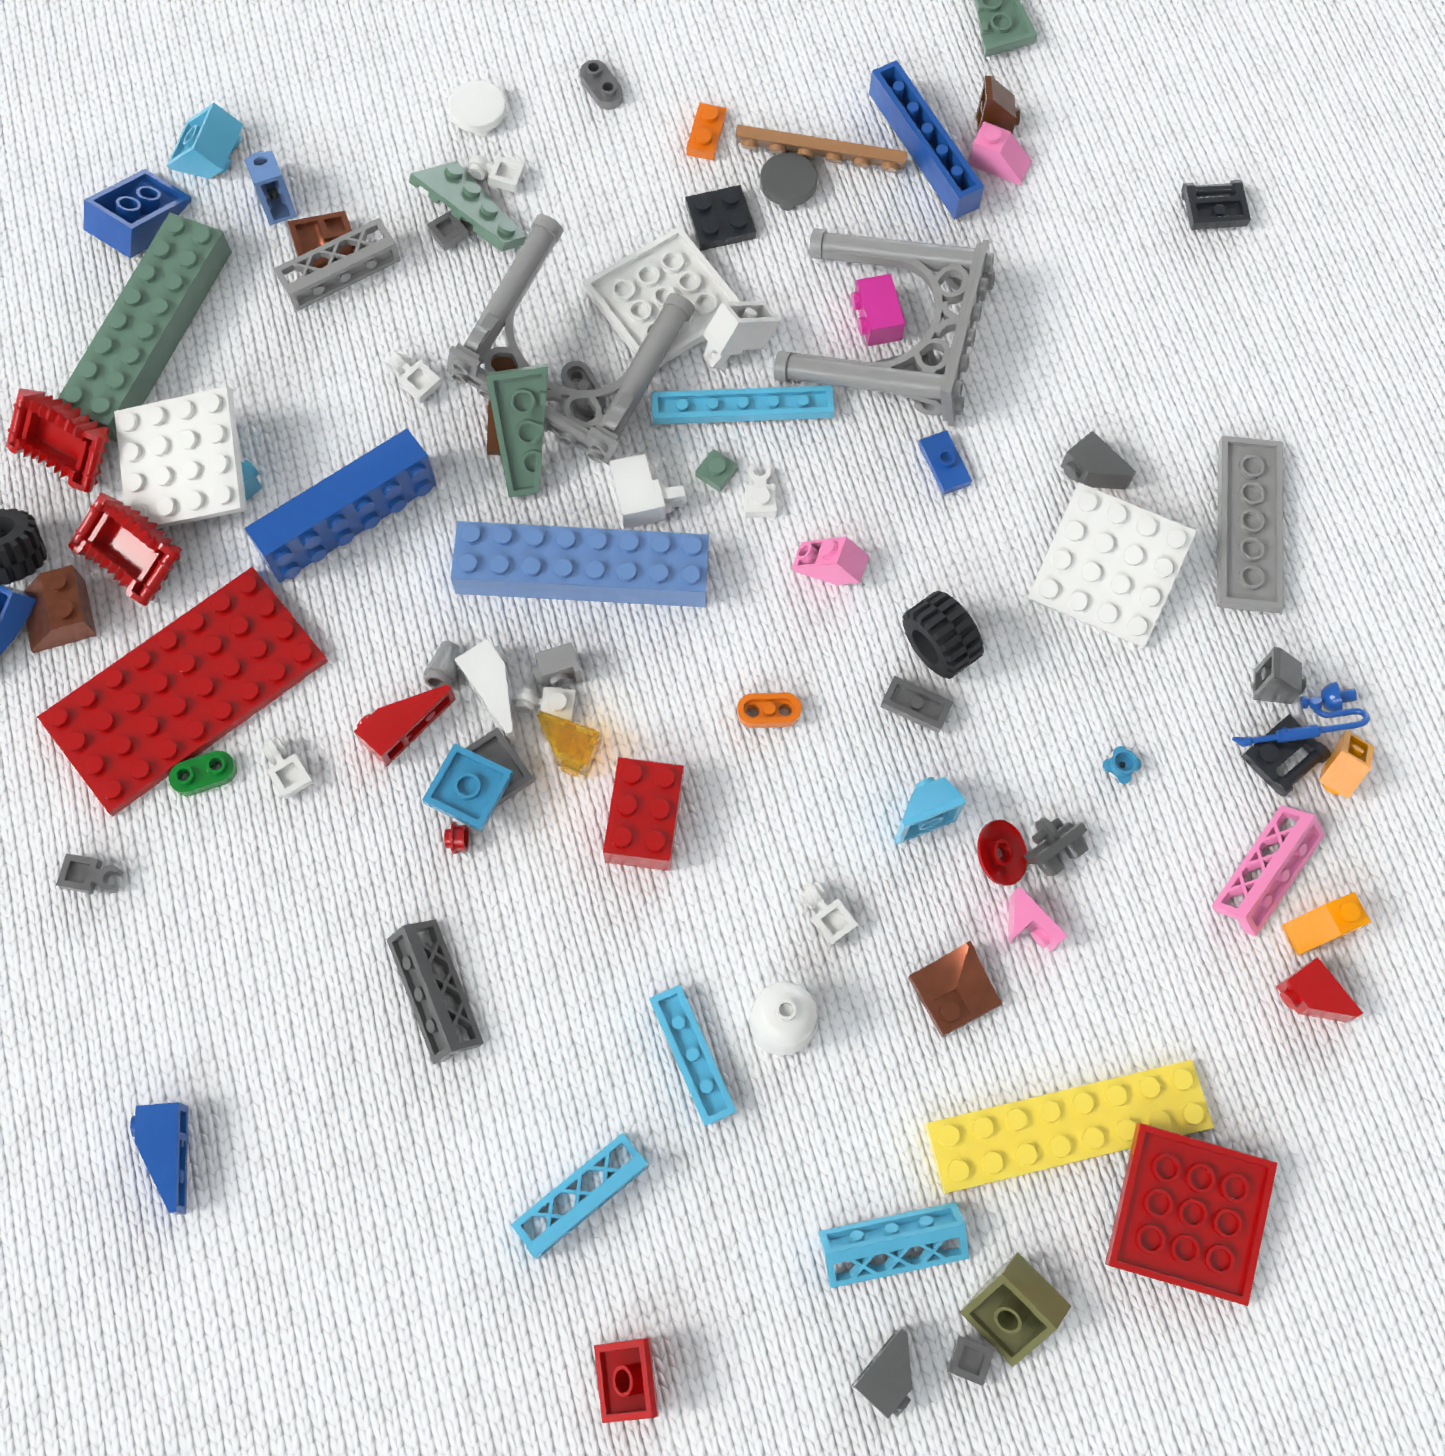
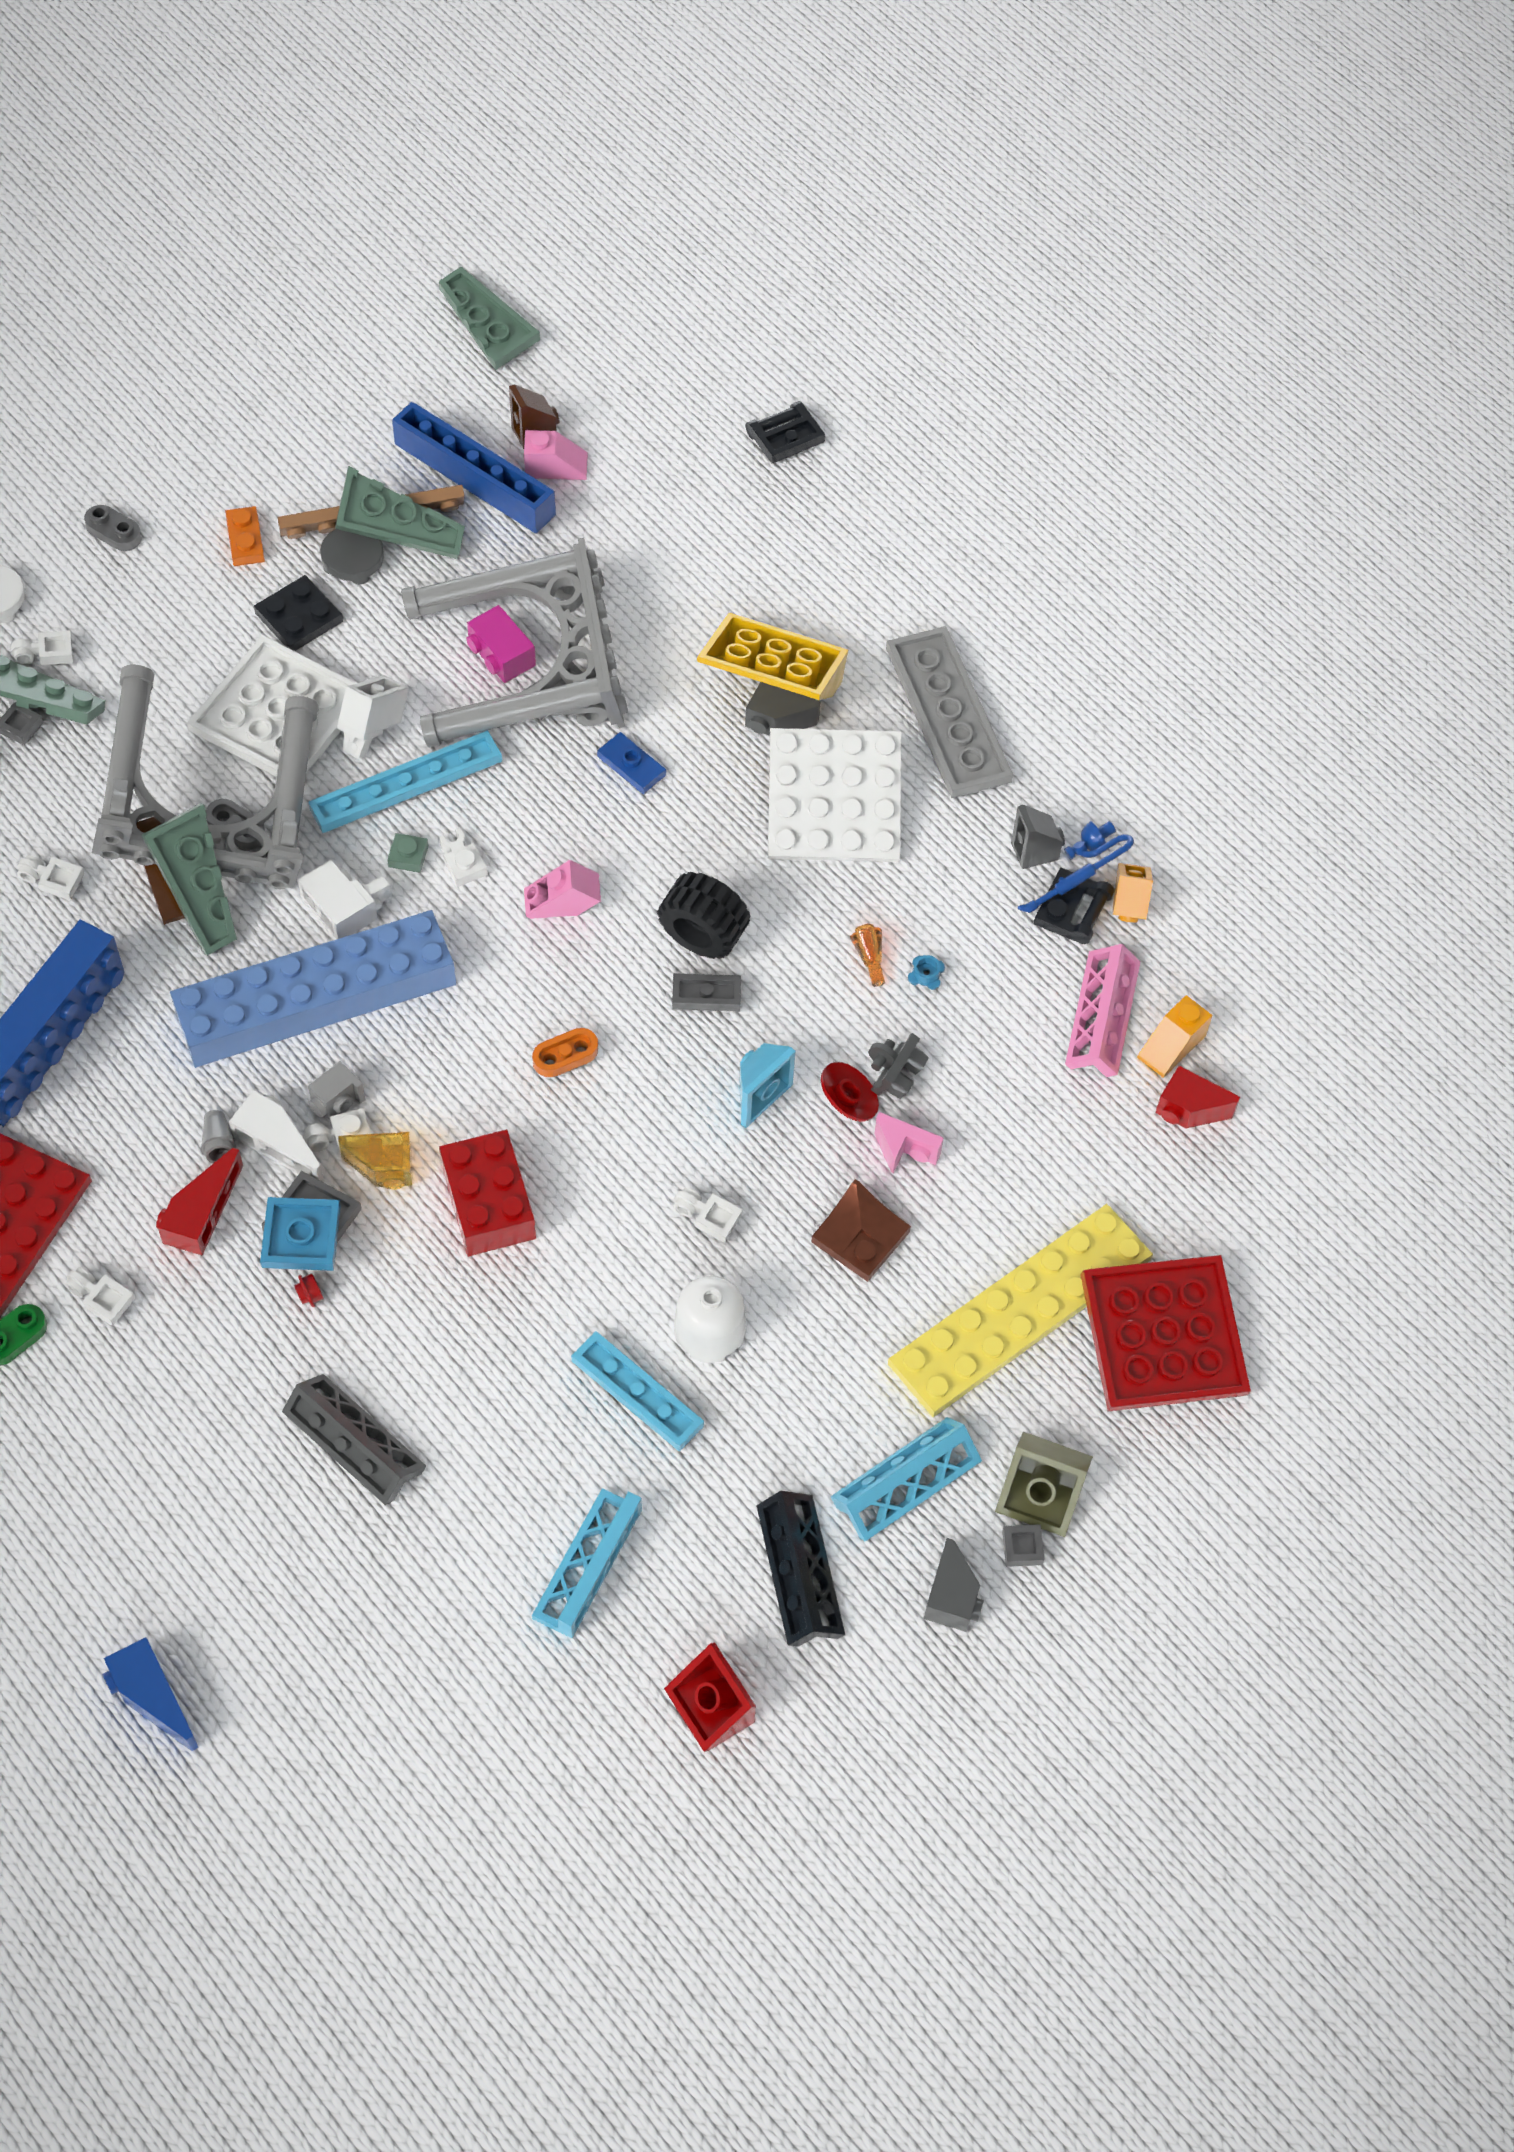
camera: 25 degrees left, 10 degrees down
(755, 1287) = (793, 1565): none -> black fence
(836, 161) = (385, 515): none -> sand green wing
(1080, 719) = (868, 944): none -> clear orange cone
(1112, 416) = (775, 657): none -> yellow slope

